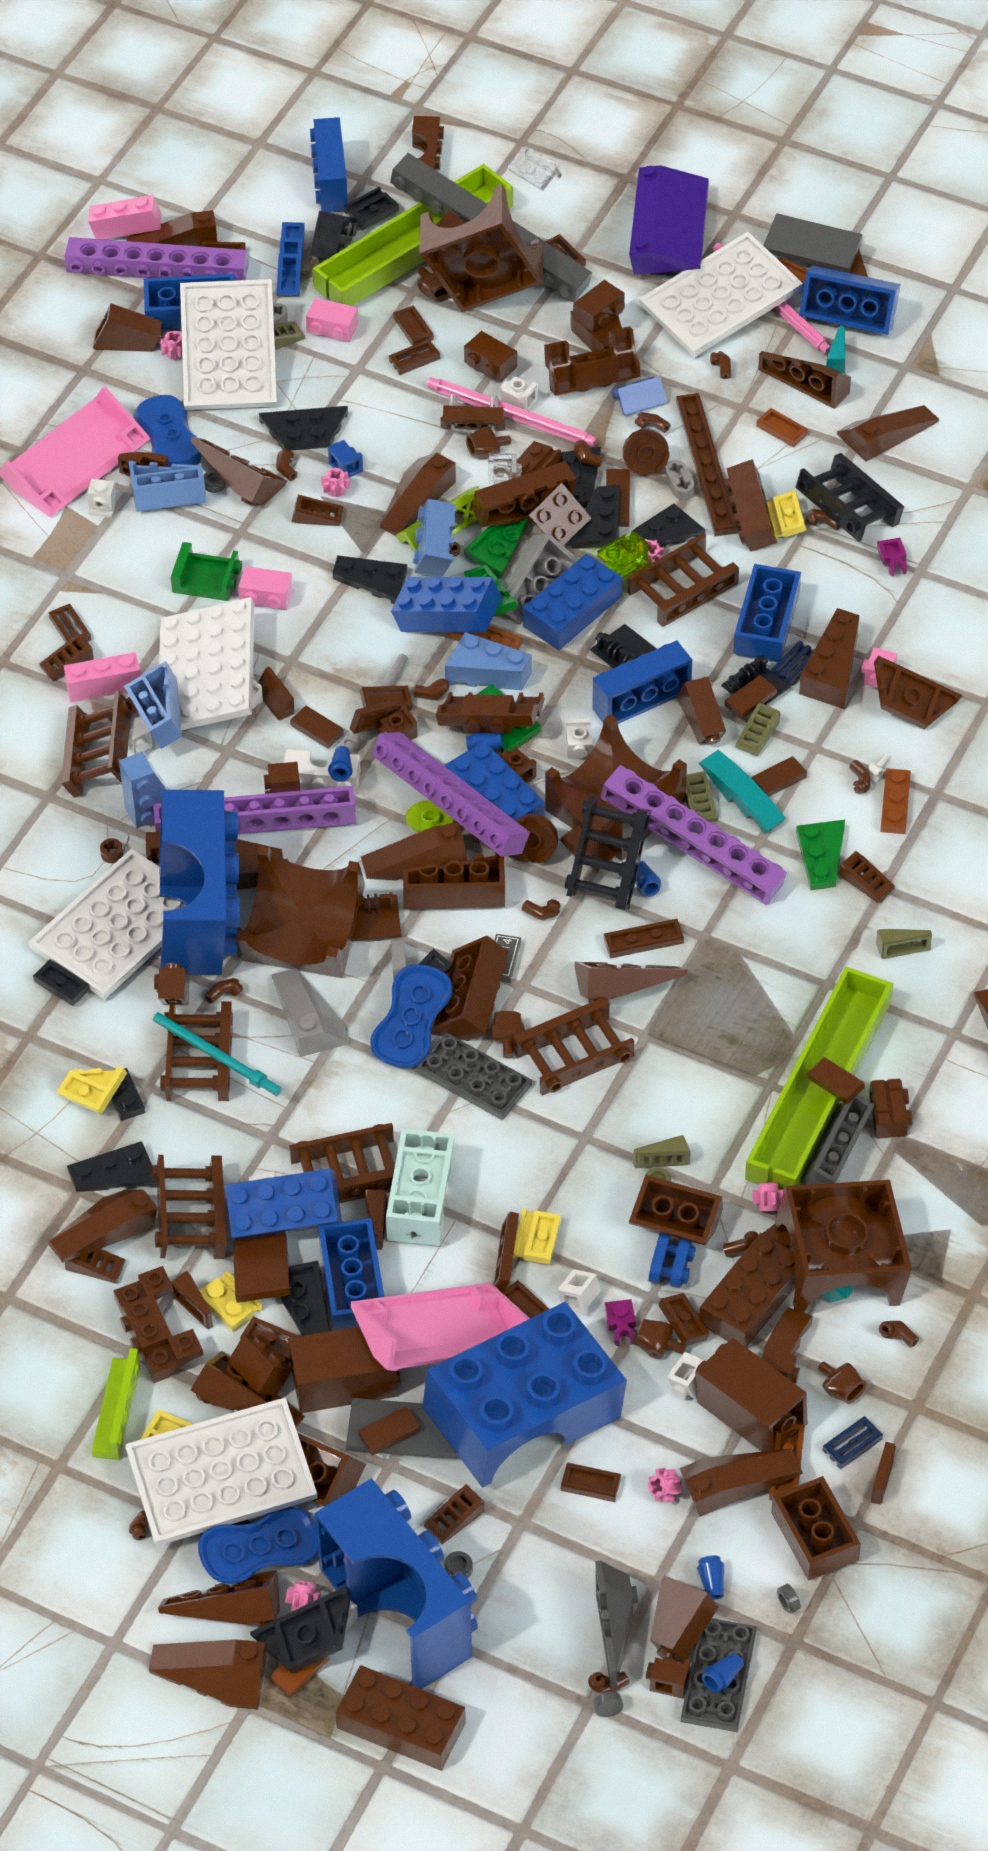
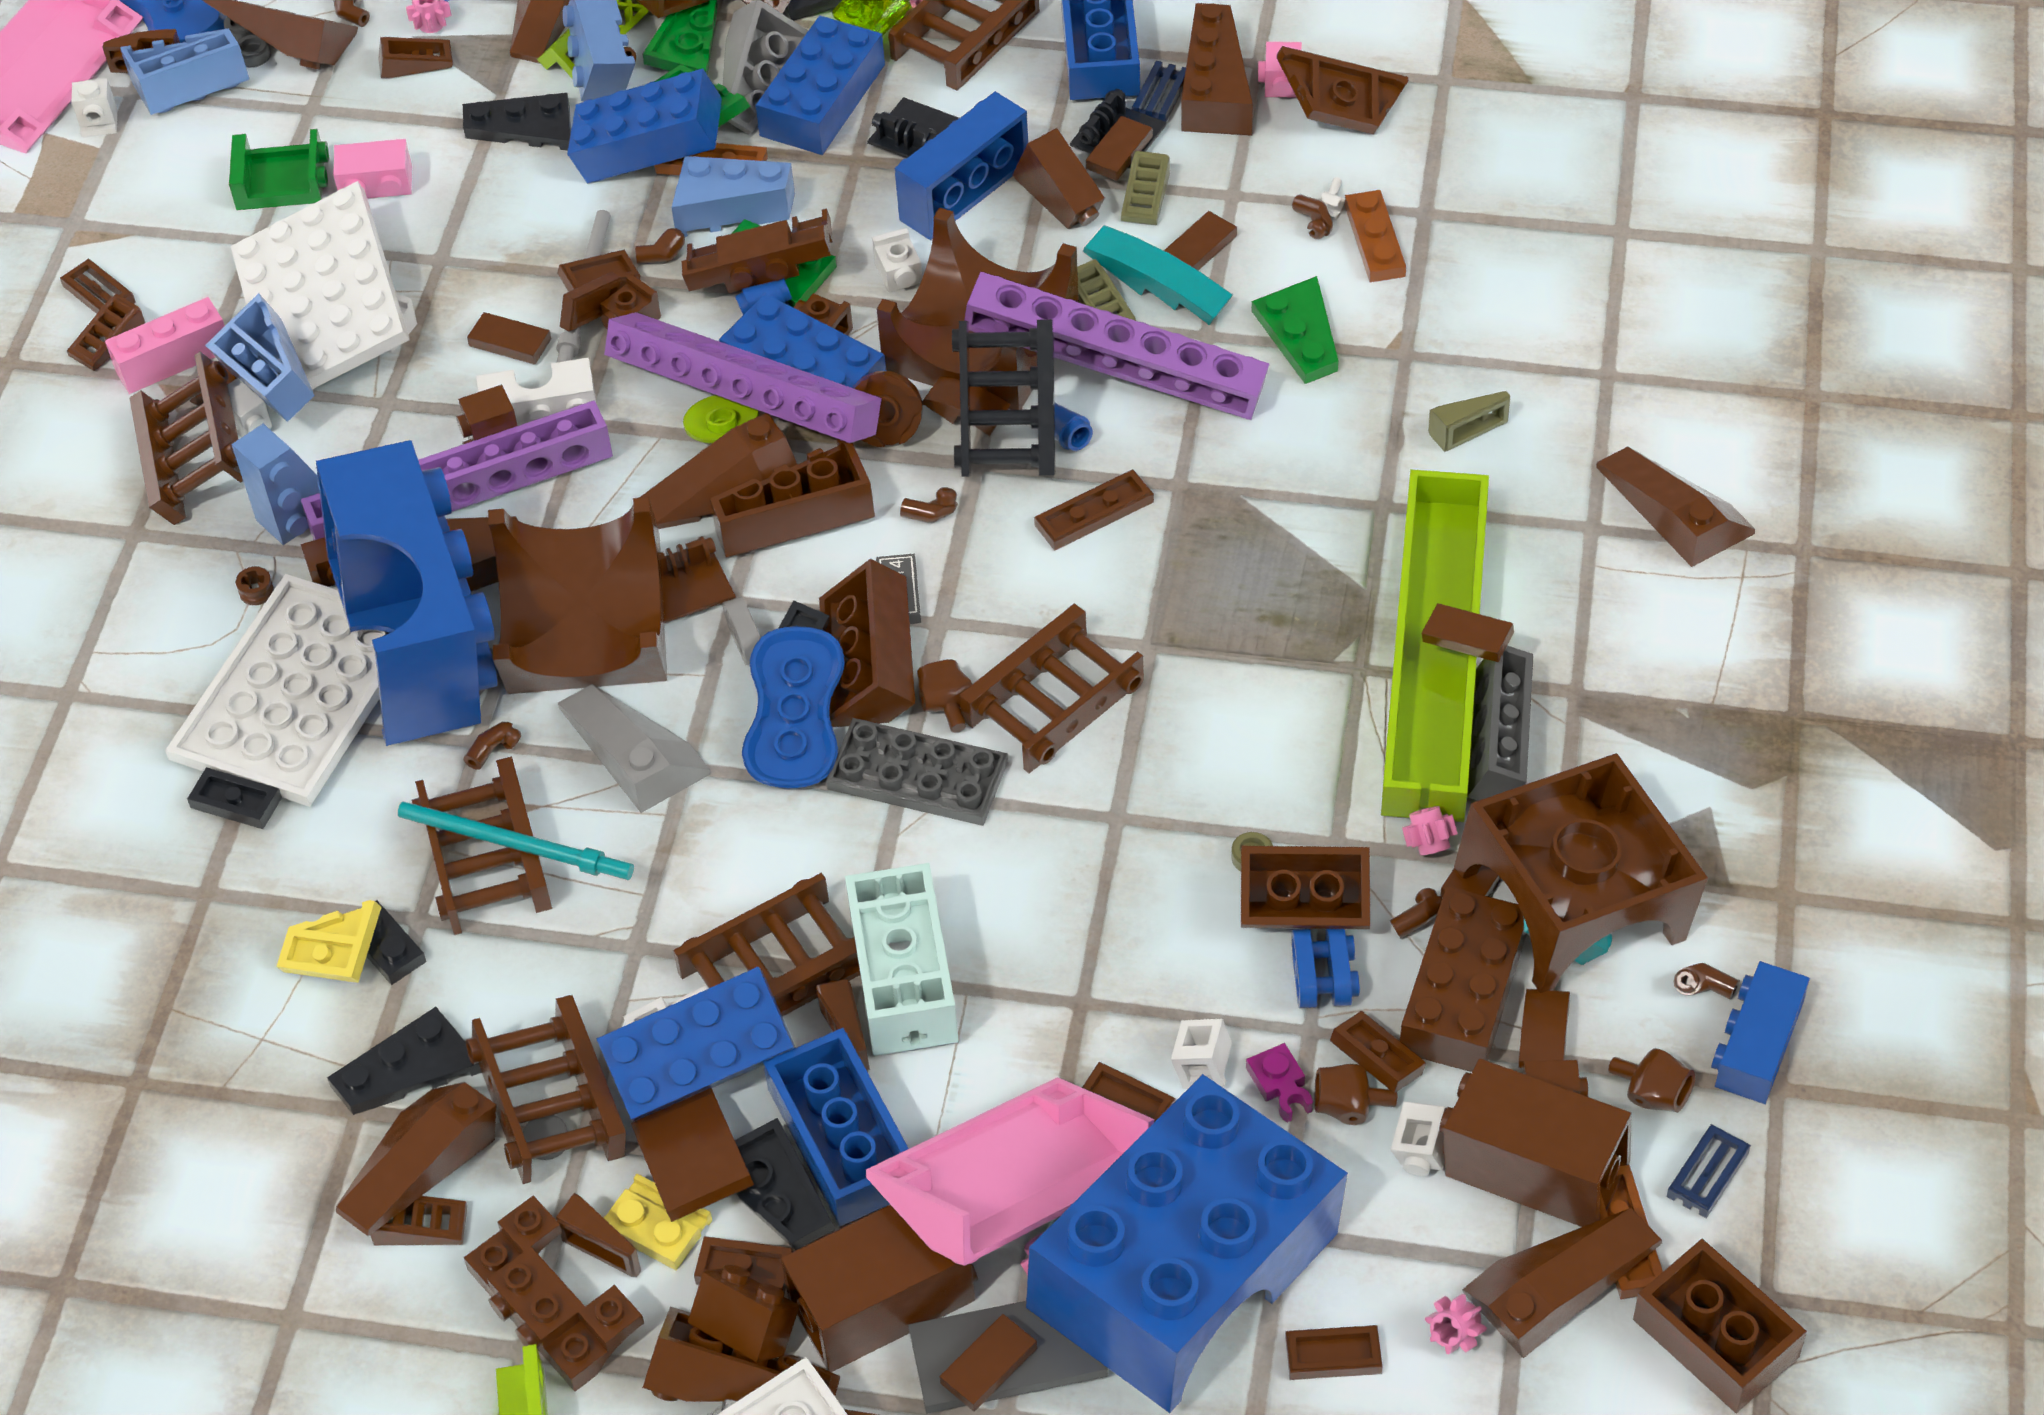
camera: 15 degrees left, 0 degrees up
(172, 984) = (412, 754): reddish brown brick -> none
(276, 695) = (436, 308): reddish brown slope -> none
(340, 765) = (566, 375): blue cone -> none
(506, 1251) = (1066, 1022): reddish brown tile -> none
(536, 1236) = (1103, 986): light yellow plate -> none
(608, 981) = (1059, 582): reddish brown wedge -> none
(663, 1153) = (1250, 808): olive slope -> none
(854, 866) = (1355, 345): reddish brown slope -> none
(883, 1473) = (1780, 1206): reddish brown tile -> none
(889, 1108) = (1557, 660): reddish brown brick -> none
(917, 1370) = (1759, 1031): none -> blue brick

